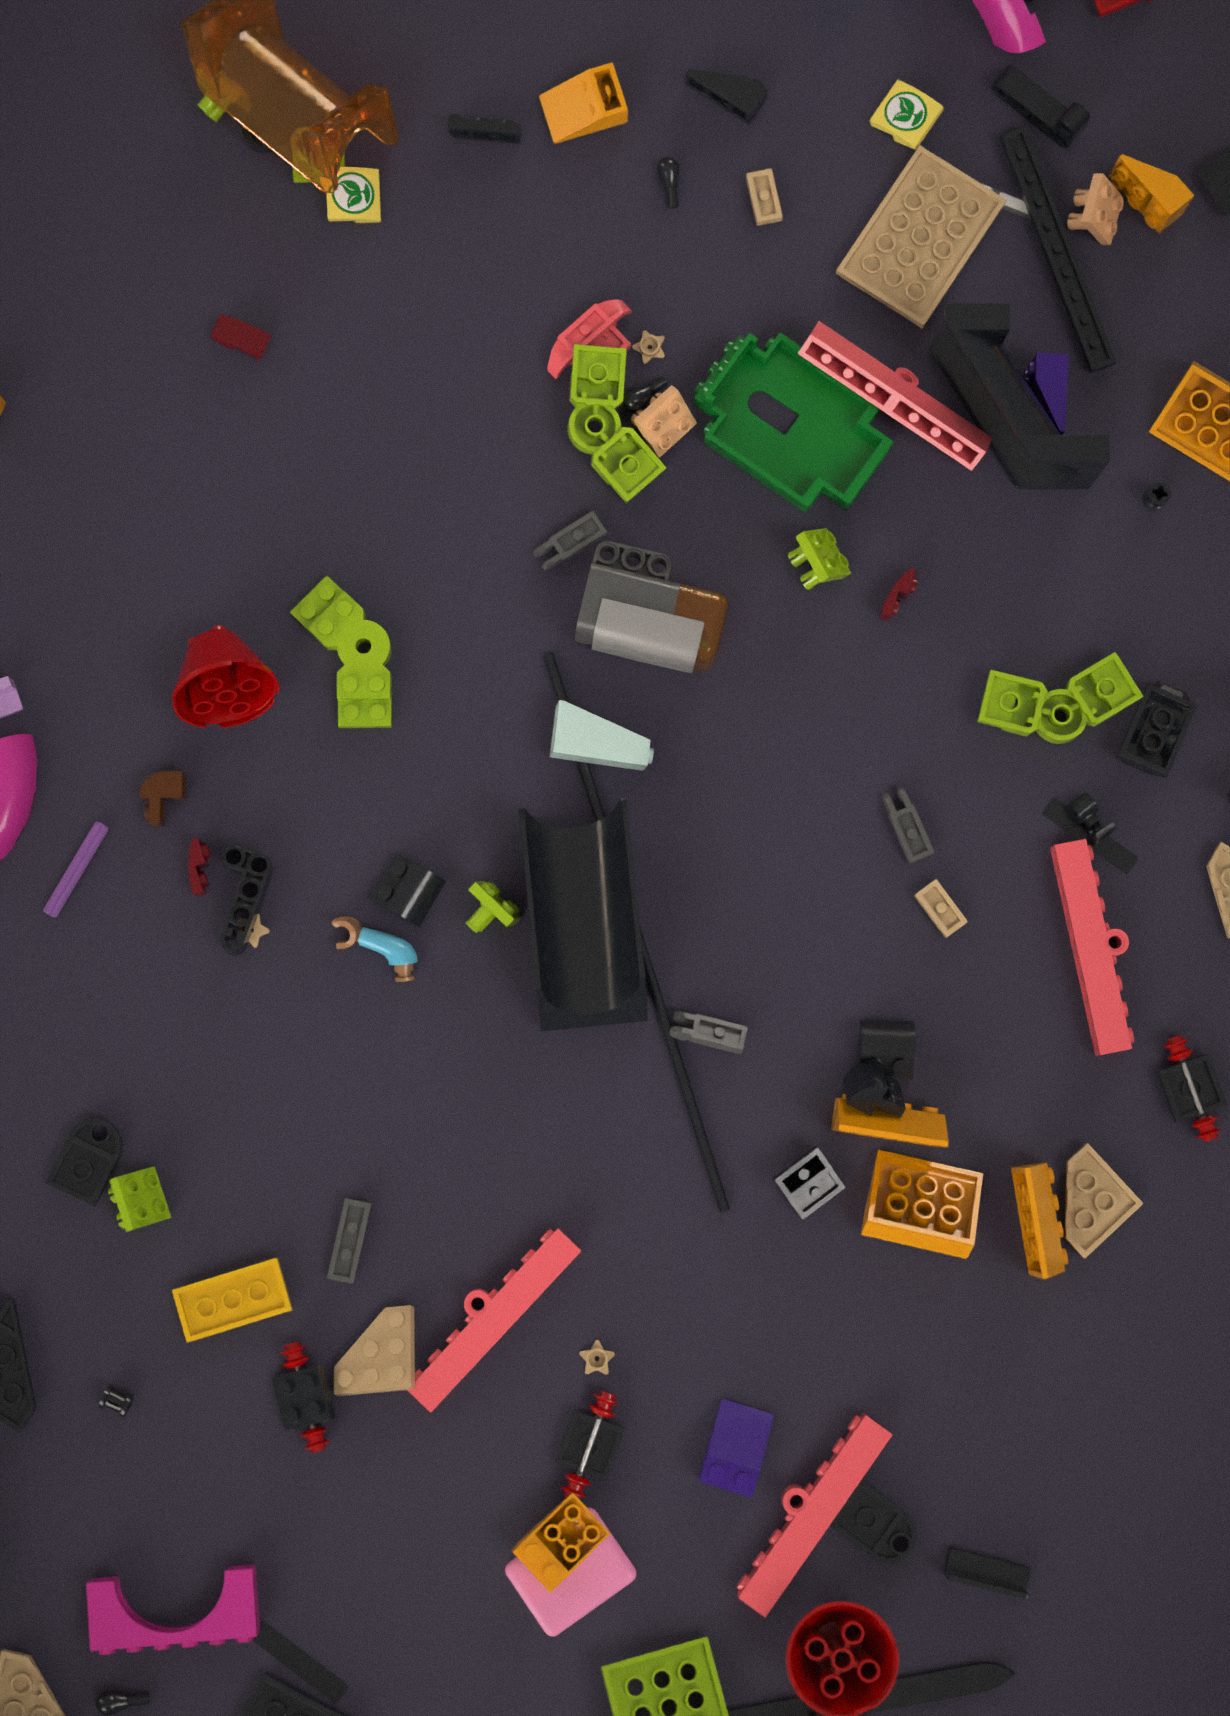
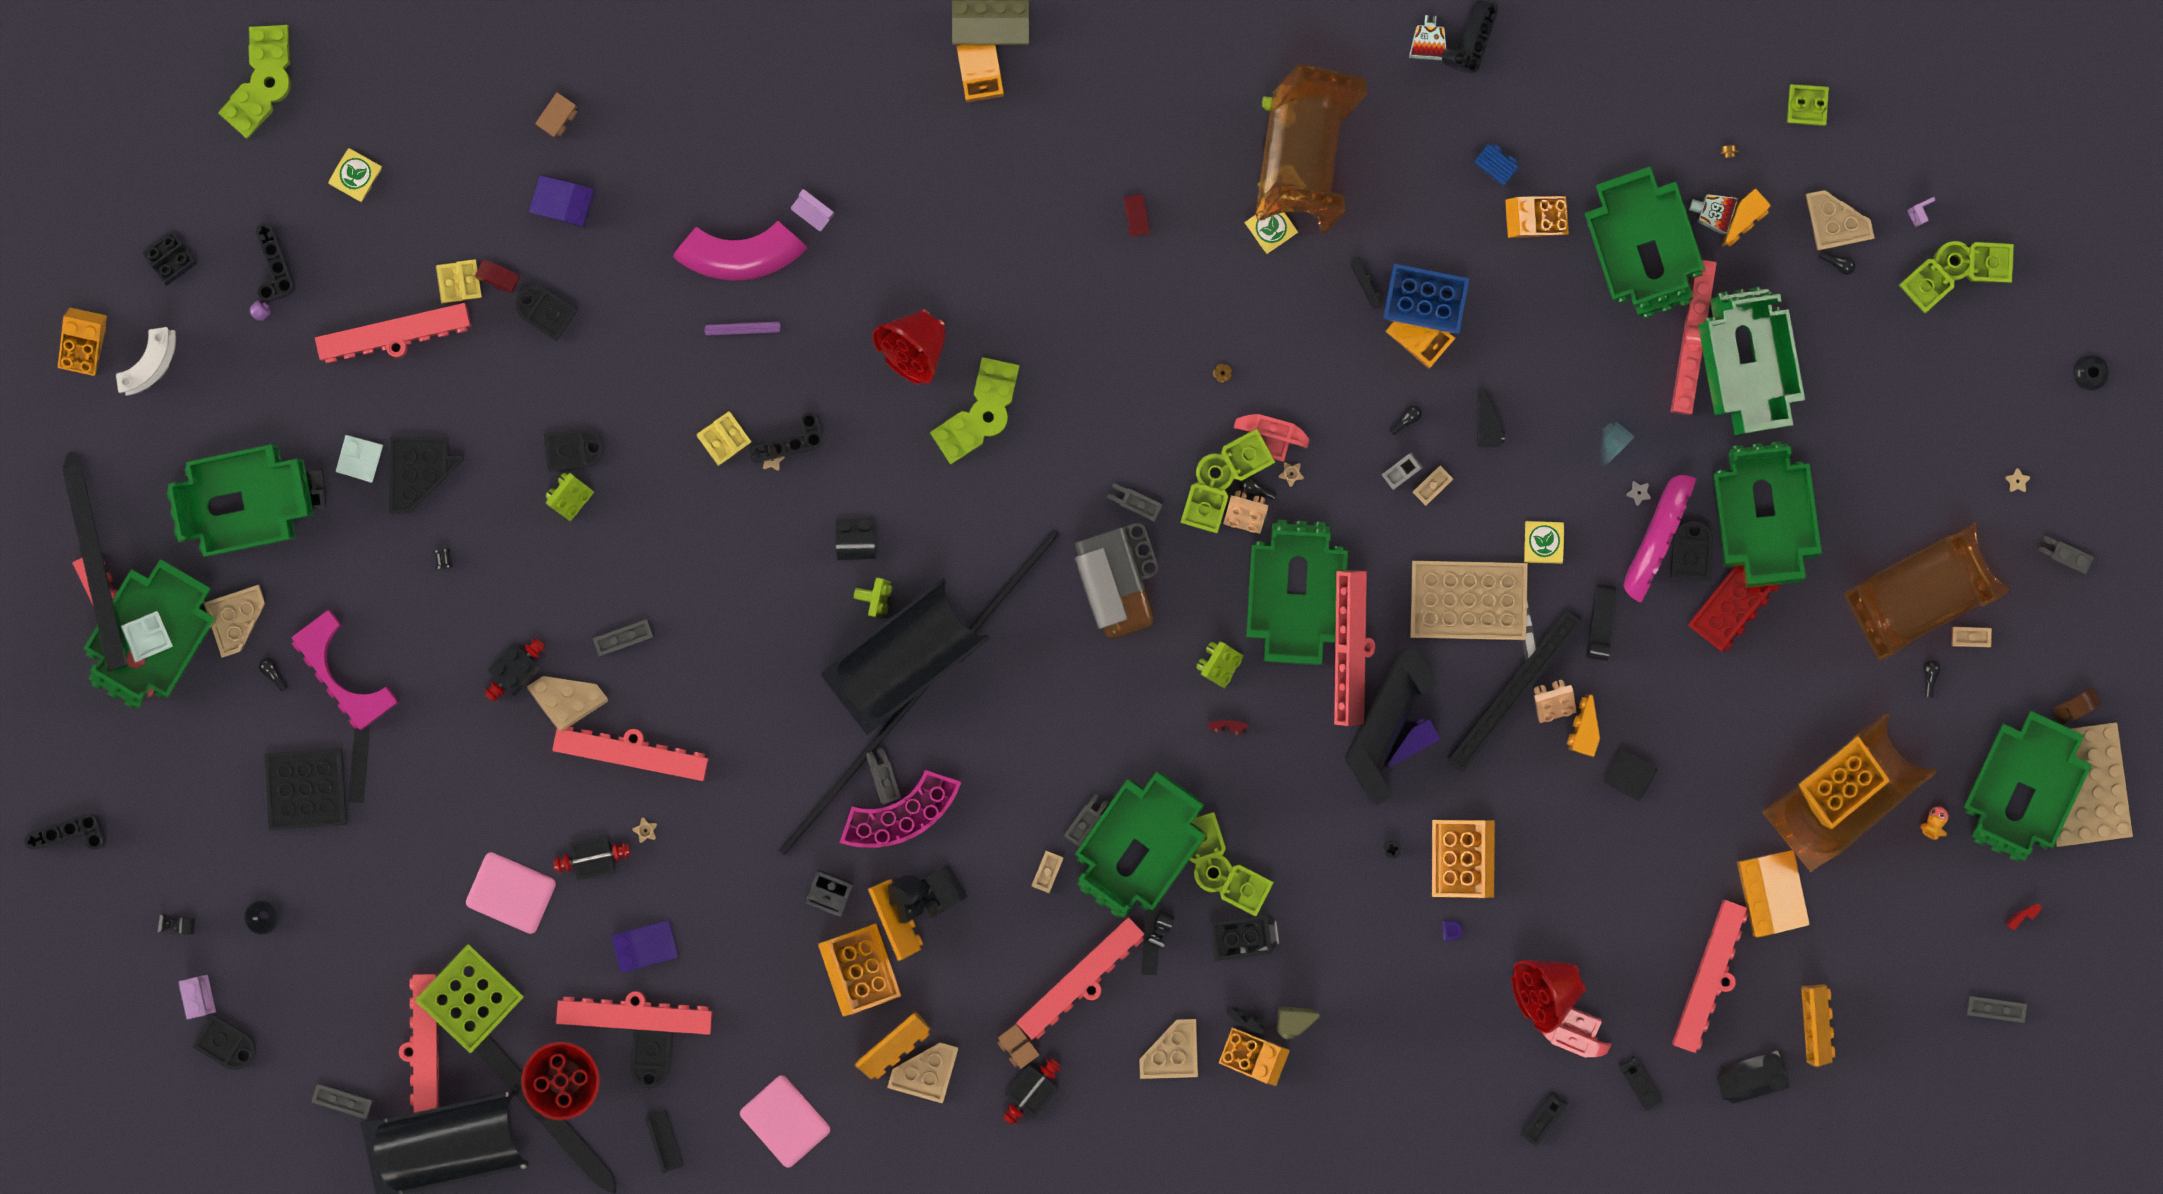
camera: 60 degrees right, 5 degrees up
(160, 788) = (824, 348): reddish brown brick -> none
(190, 972) = (723, 438): none -> light yellow slope
(198, 859) = (795, 399): dark red slope -> none
(232, 1300) = (544, 590): yellow plate -> none
(395, 949) = (814, 555): medium azure piece -> none
(485, 358) = (1217, 372): none -> pearl gold plate
(545, 67) = (1426, 298): none -> blue slope
(560, 1542) = (524, 875): light orange slope -> none
(595, 740) = (1018, 595): light aqua slope -> none
(725, 216) = (1402, 471): none -> light grey brick
(774, 1037) = (903, 819): none -> dark pink brick
(960, 738) = (1159, 819): none -> green panel
(1049, 1408) = (785, 1121): none -> bright pink piece
(1128, 1070) = (1018, 1046): none -> medium nougat piece

